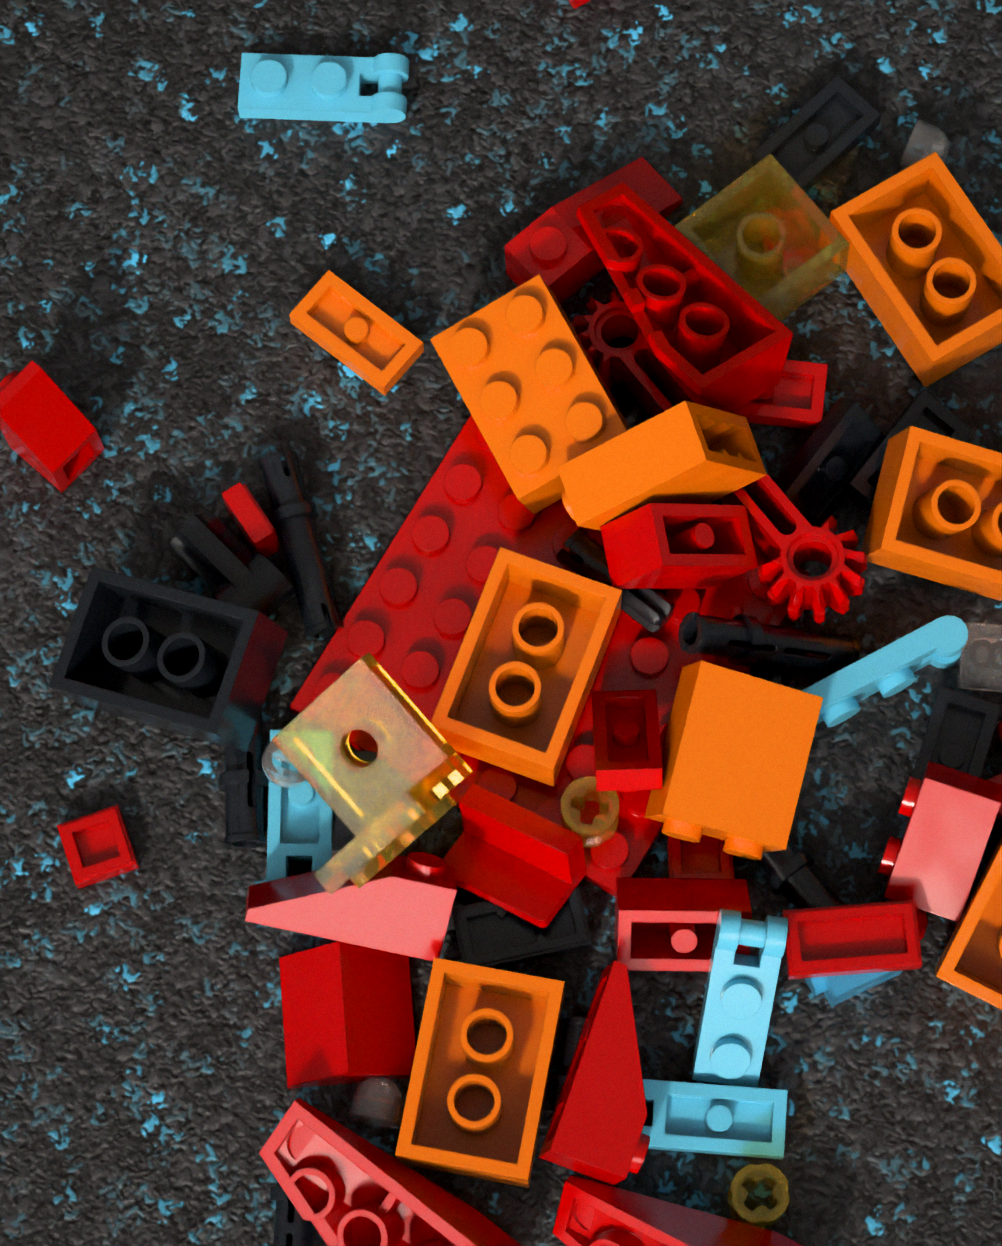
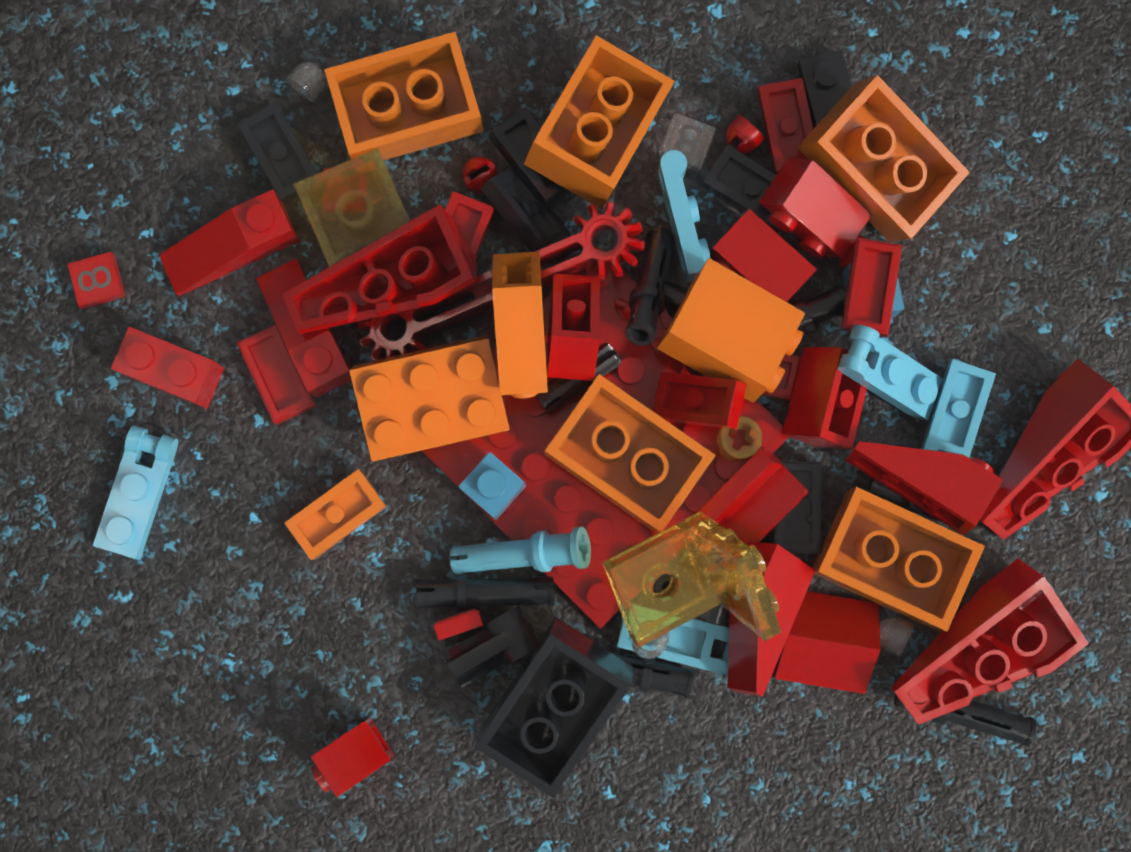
camera: 80 degrees left, 10 degrees up
(98, 846) = (664, 787): red tile -> none
(369, 591) = (539, 551): none -> medium azure pin
(440, 506) = (492, 485): none -> dark azure brick
(491, 78) = (167, 367): none -> red brick
(514, 210) = (275, 375): none -> red tile
(680, 113) = (229, 243): none -> red slope
(754, 1176) = (1027, 404): clear yellow bush -> none
(848, 792) = (762, 257): none -> red brick
(874, 386) = (478, 182): none -> red hinge

